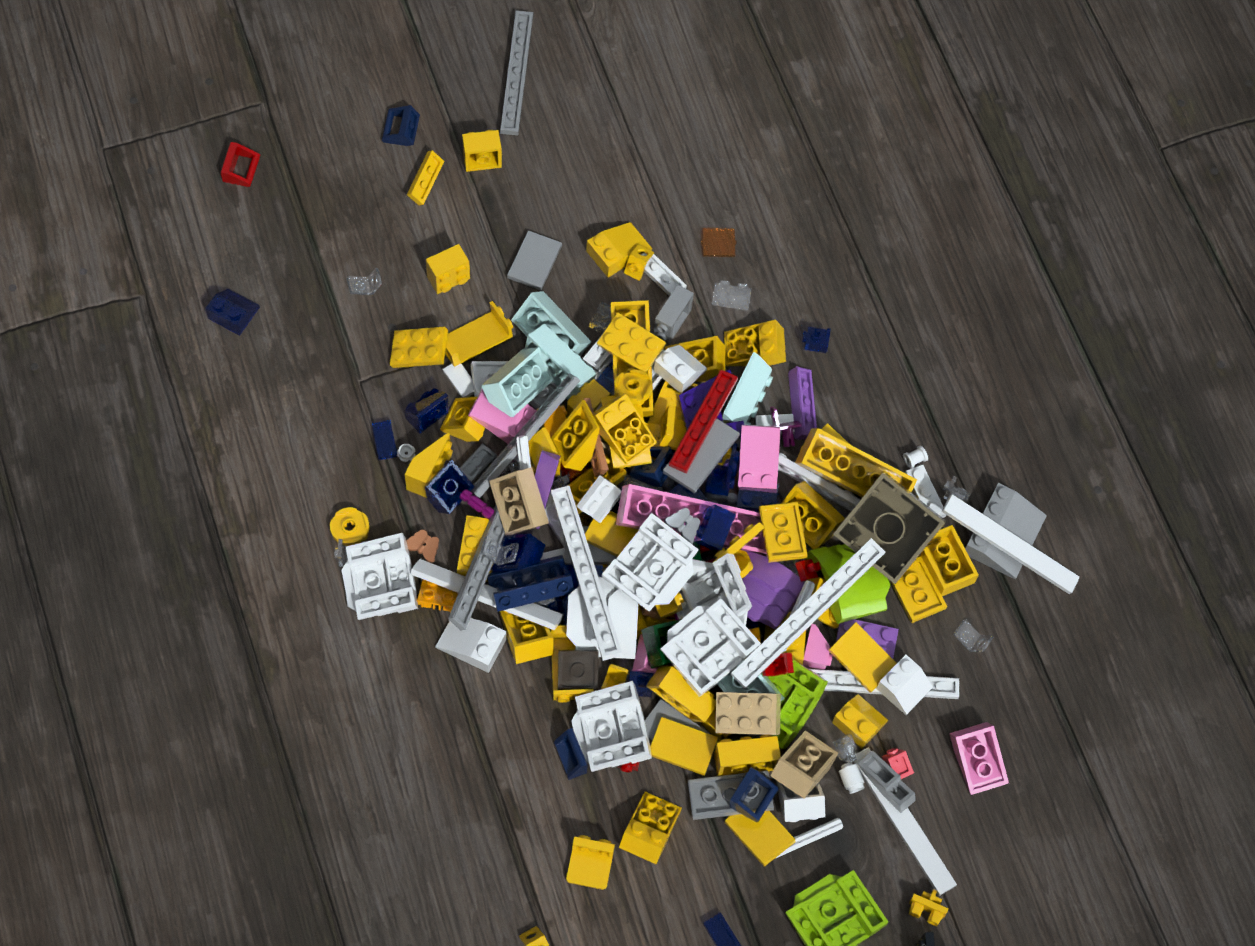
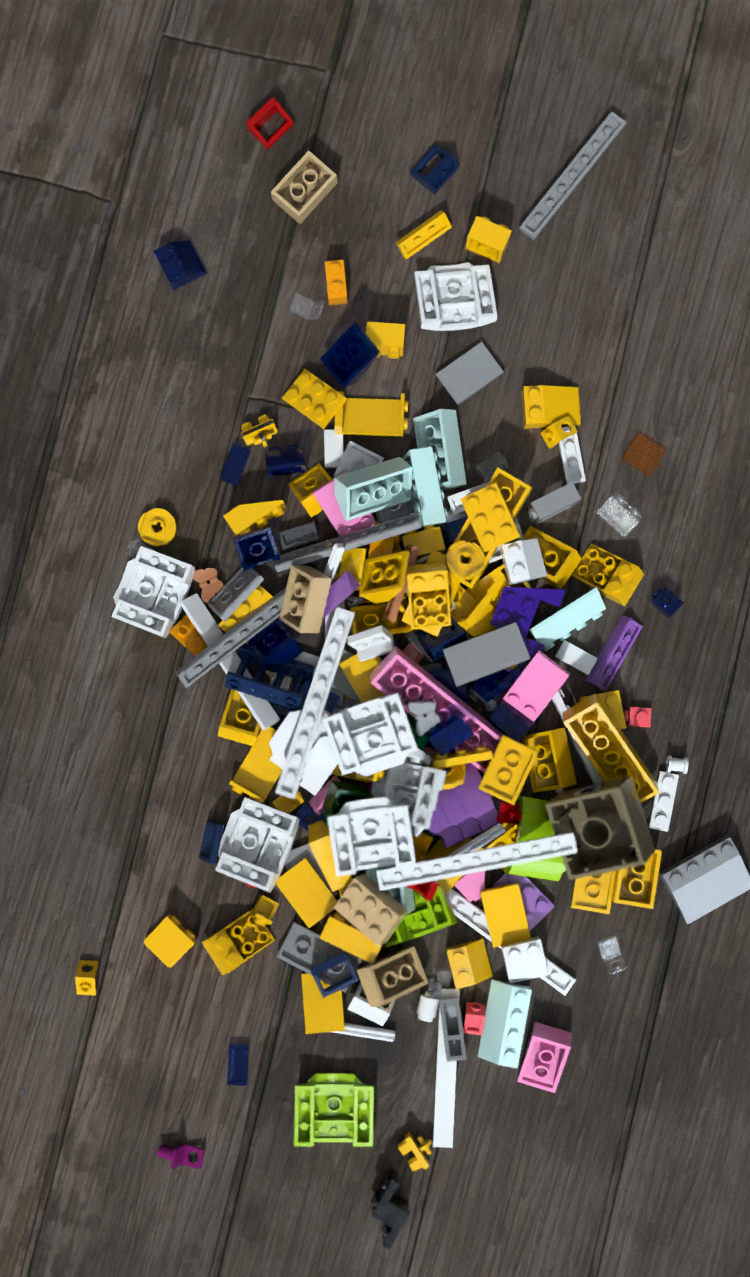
camera: 40 degrees right, 20 degrees up
(302, 194) = (304, 187): none -> tan brick
(376, 251) = (336, 282): none -> light orange brick
(390, 400) = (259, 433): none -> yellow hips
(406, 448) = (246, 483): white plate -> none
(429, 293) = (350, 356): none -> clear blue slope
(453, 536) = (235, 592): none -> light grey tile
(475, 645) = (197, 700): white slope -> none
(477, 504) = (270, 577): magenta axle -> none
(485, 208) = (455, 297): none -> white slope
(496, 552) = (258, 633): clear bracket -> none
(578, 669) = (261, 775): dark brown plate -> none
(656, 785) = (264, 911): none -> yellow bracket
(703, 421) = (506, 628): red tile -> none
(786, 428) = (581, 669): magenta bracket -> none
(859, 439) = (638, 716): none -> coral bracket
(927, 749) = (504, 1023): none -> light aqua slope
(958, 492) = (689, 822): clear bracket -> none
(1010, 544) = (700, 898): white tile -> none

